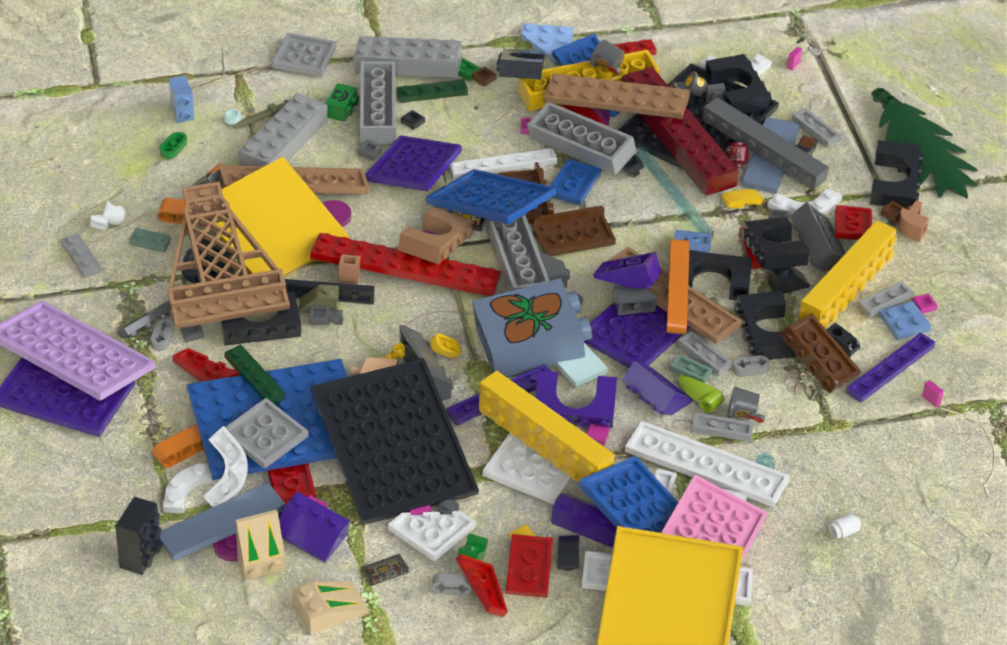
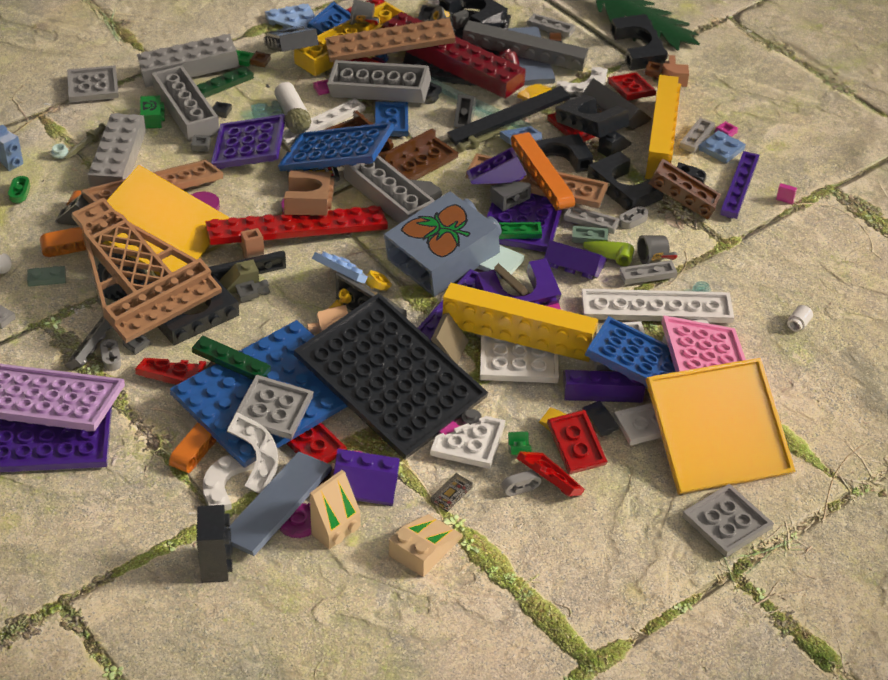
camera: 25 degrees left, 0 degrees up
(416, 321) = (340, 265): none -> light blue plate
(452, 133) = (263, 110): none -> clear light blue plate
(472, 156) = (298, 120): none -> olive piece
(473, 426) = (450, 338): none -> dark tan tile
(482, 134) = (288, 97): none -> white piece
(570, 388) = (512, 281): none -> dark tan tile
(616, 340) = (520, 230): none -> green tile
(641, 232) = (473, 142): none -> olive sword
(653, 197) = (464, 110): none -> dark grey slope
(695, 215) = (509, 115): none -> black tile

